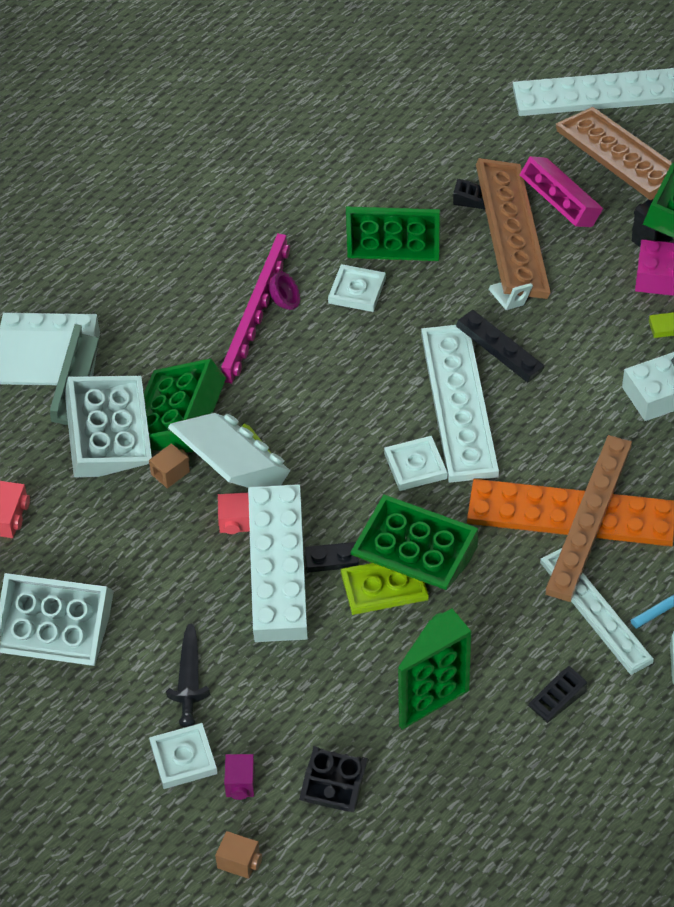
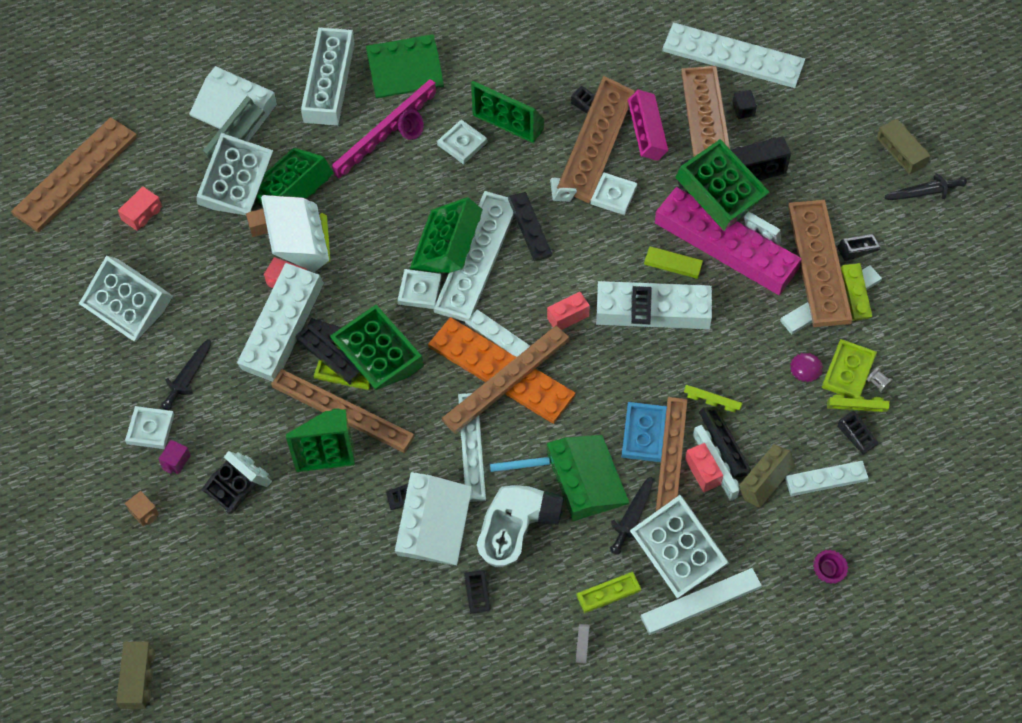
camera: 25 degrees right, 10 degrees up
(150, 276) = (328, 76): none -> light aqua brick
(232, 233) = (404, 65): none -> green slope
(355, 746) = (246, 467): none -> light aqua plate
(357, 575) = (328, 353): none -> black plate
(404, 633) = (357, 417): none -> medium nougat plate
(413, 392) = (447, 237): none -> green slope
(541, 475) = (496, 333): none -> light aqua plate
(570, 276) = (614, 193): none -> light aqua plate
(608, 416) = (568, 311): none -> coral brick
(611, 706) = (433, 519): none -> light aqua slope
(651, 132) = (744, 104): none -> black brick

